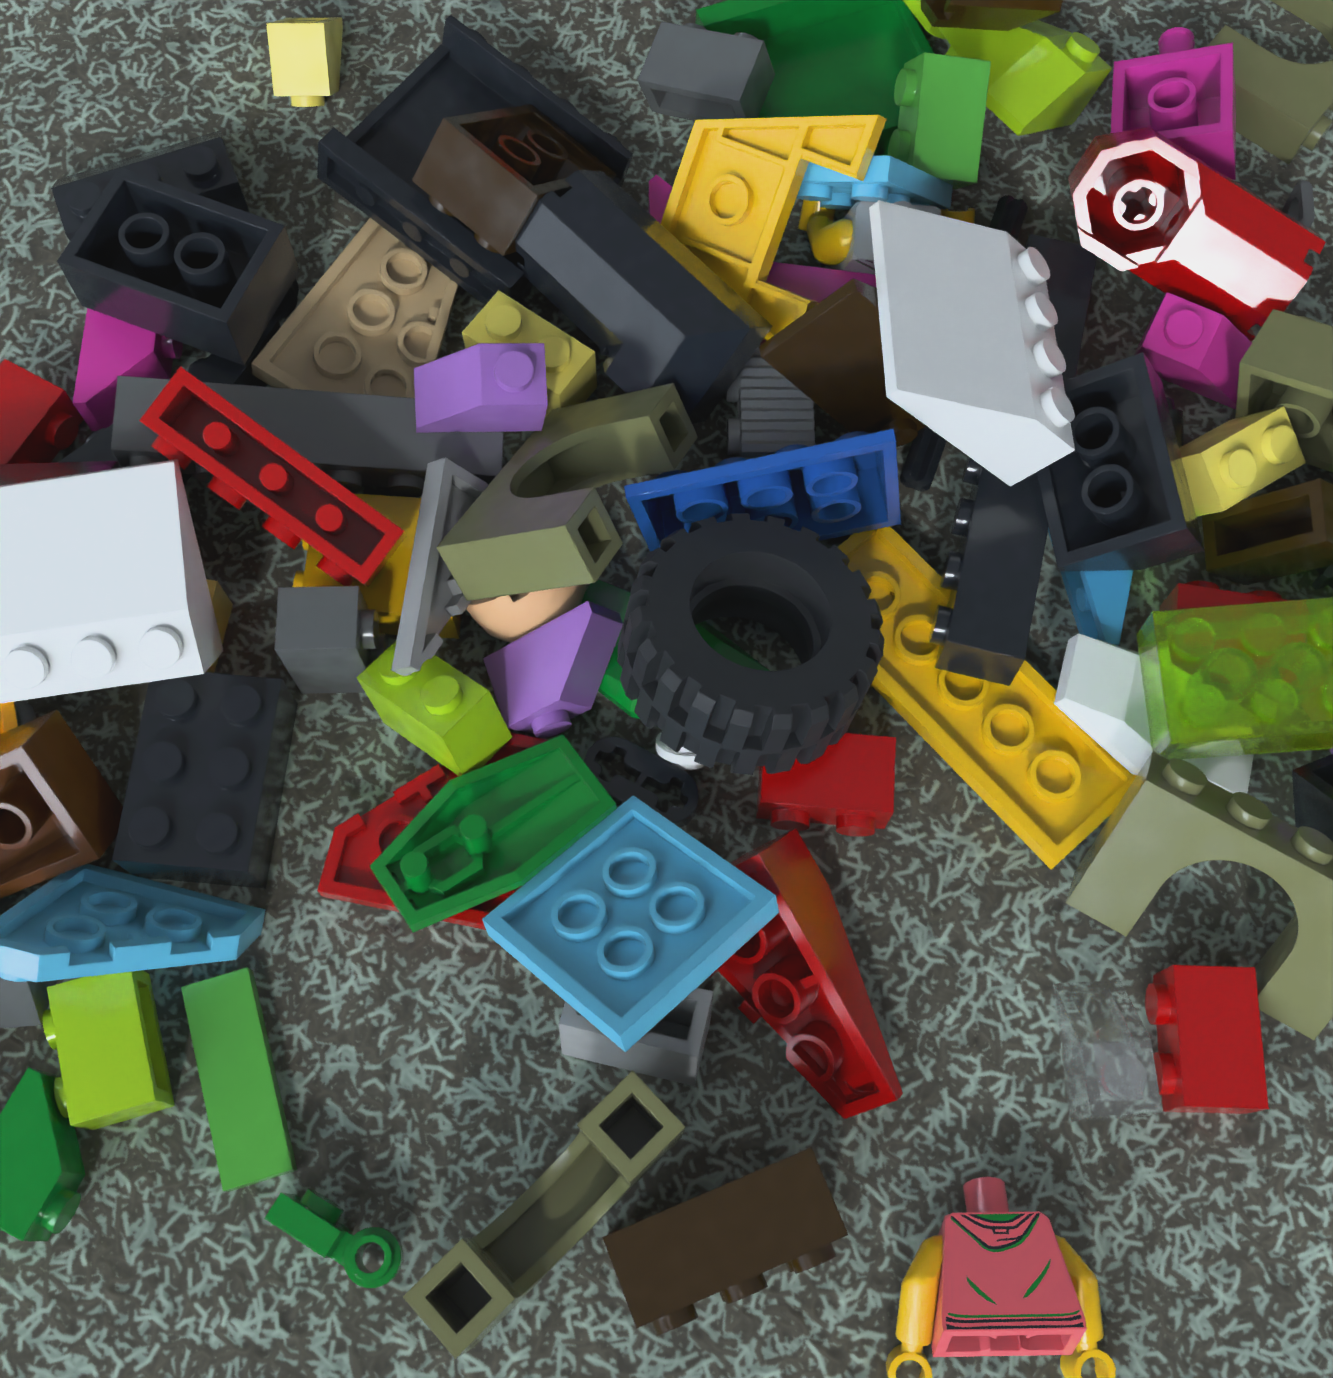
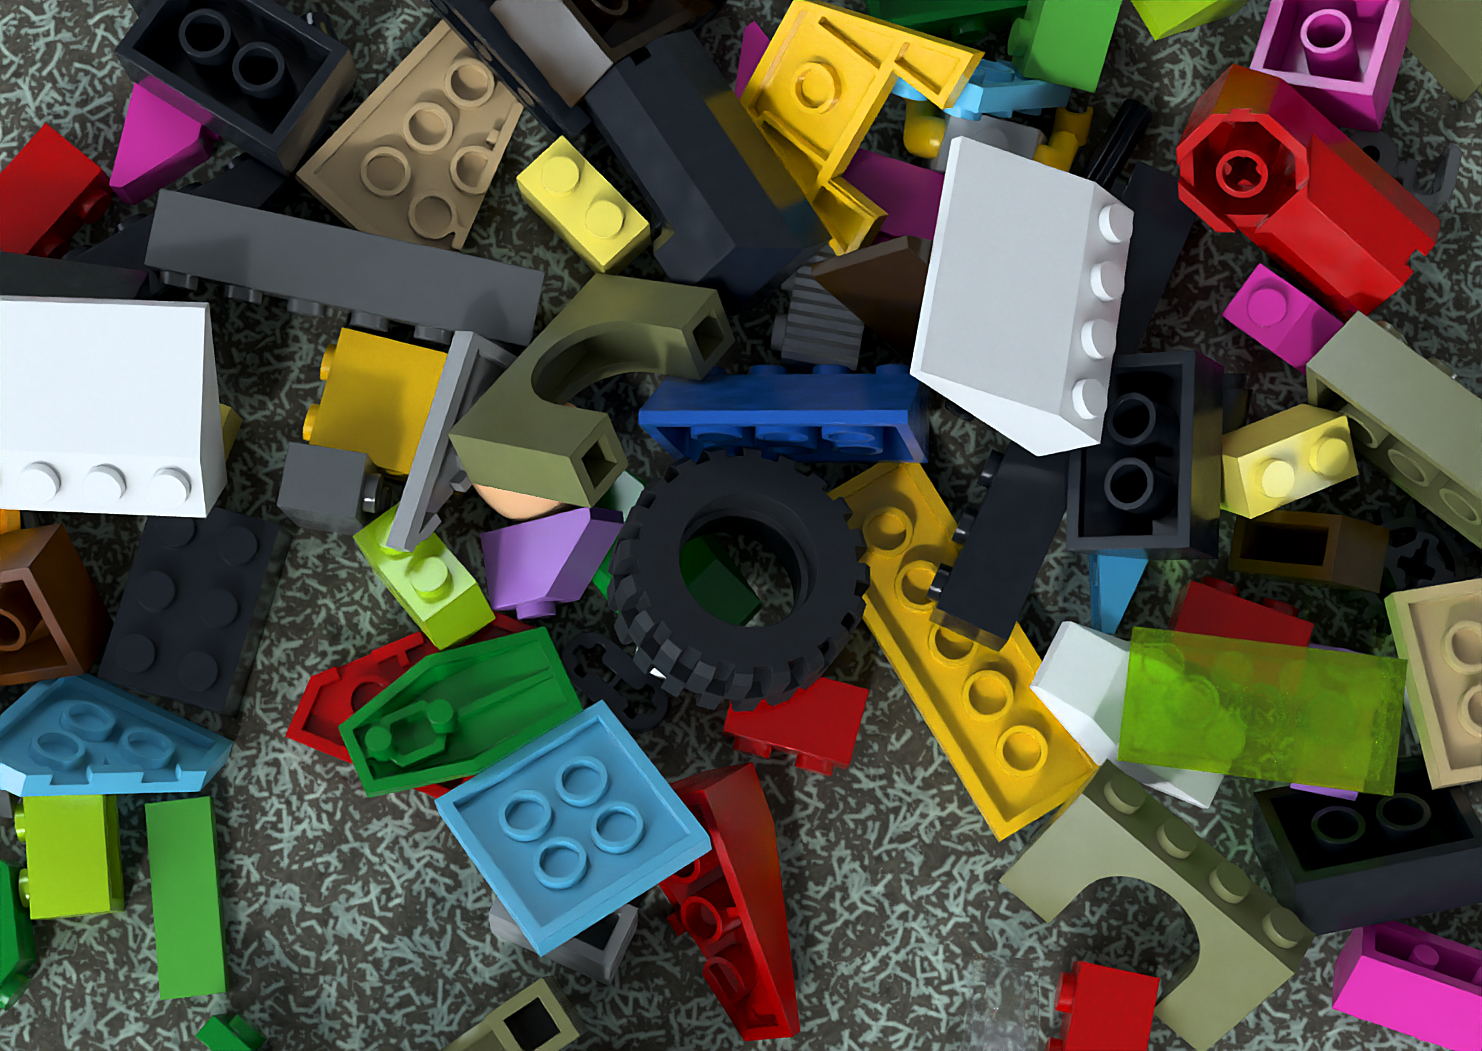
camera: 10 degrees right, 10 degrees up
(274, 477) = (301, 333): red brick -> none
(483, 390) = (521, 262): medium lavender slope -> none

